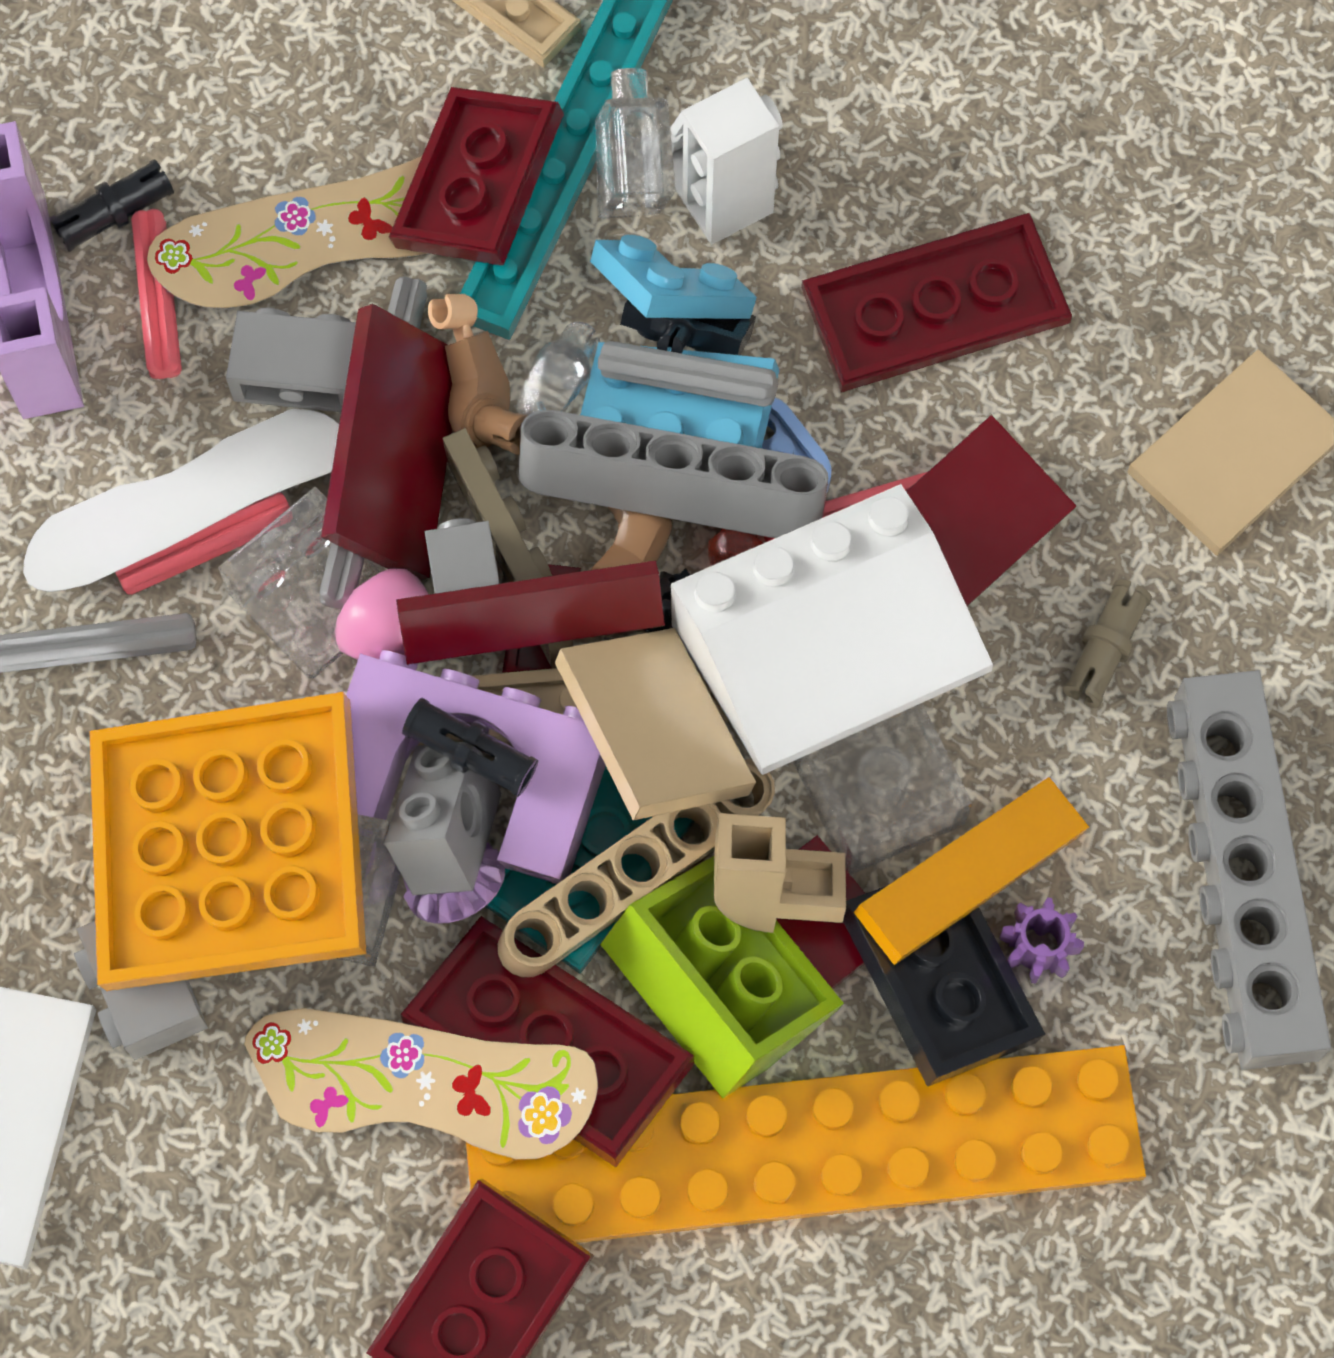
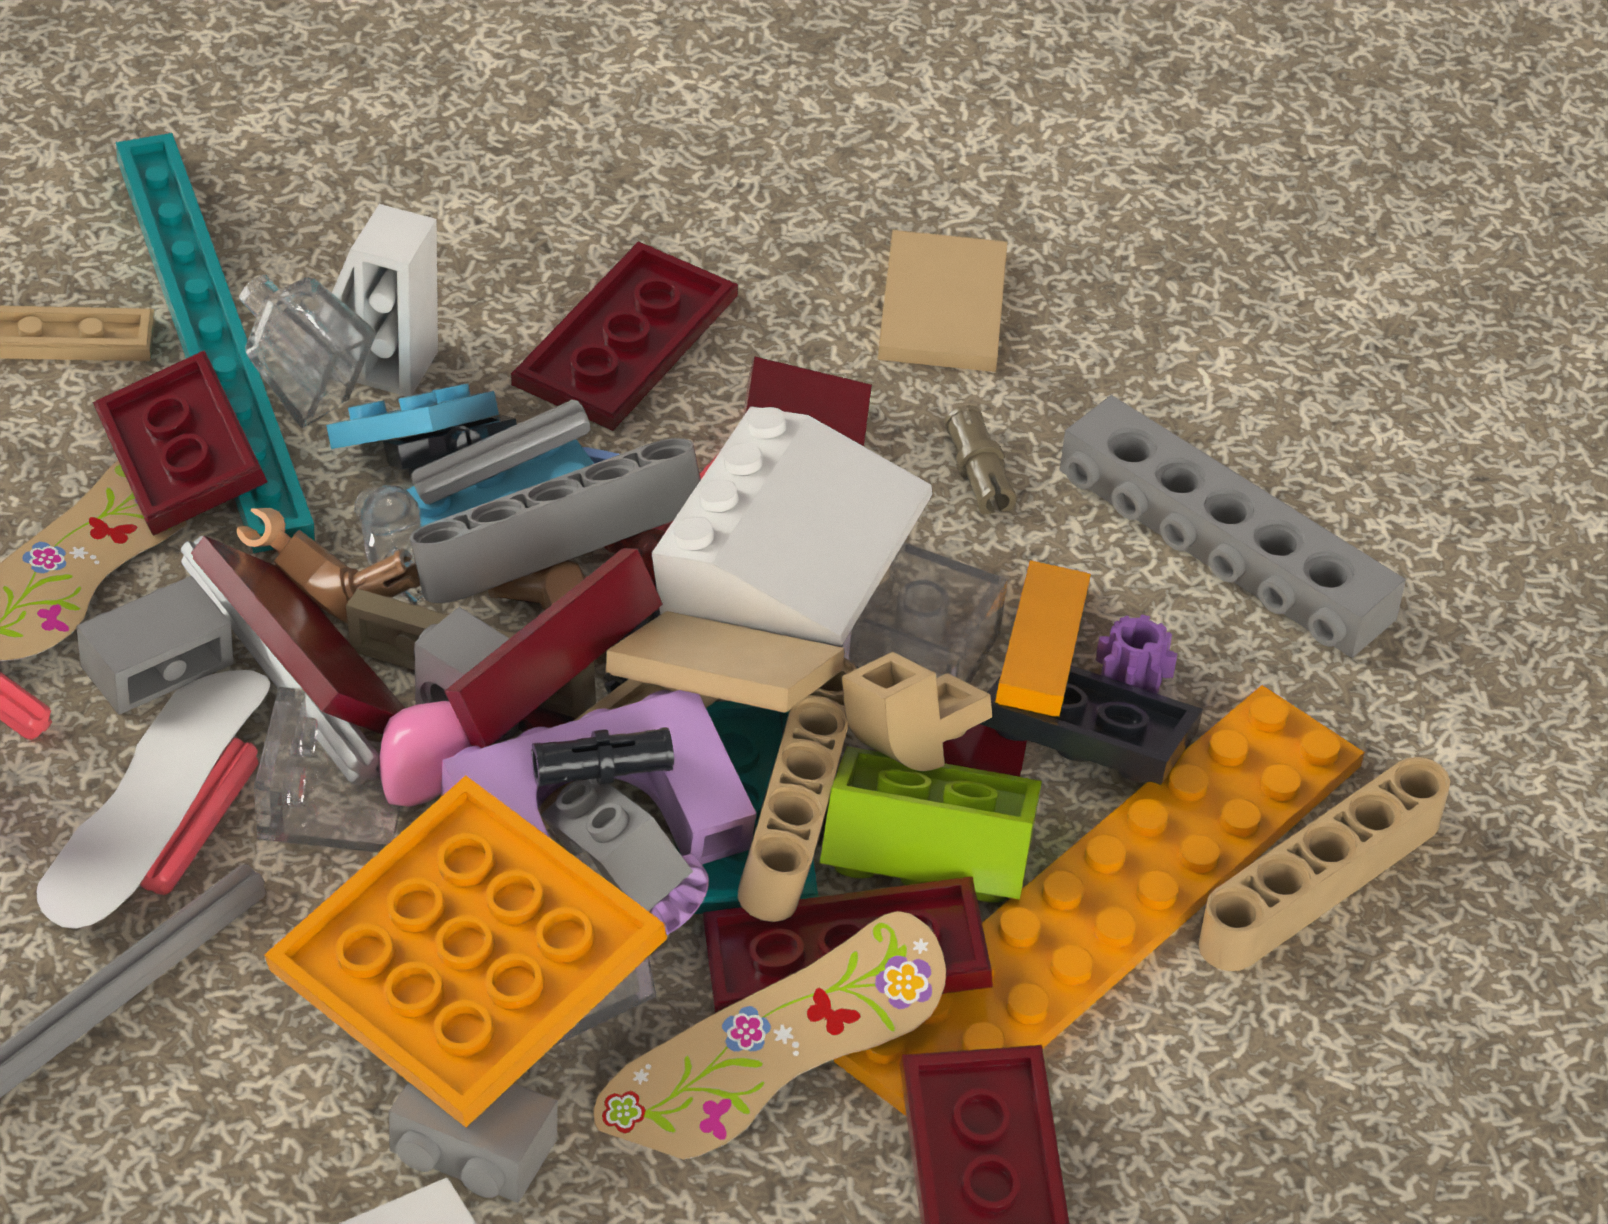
camera: 45 degrees left, 25 degrees down
(1030, 1241) = (1323, 864): none -> tan beam

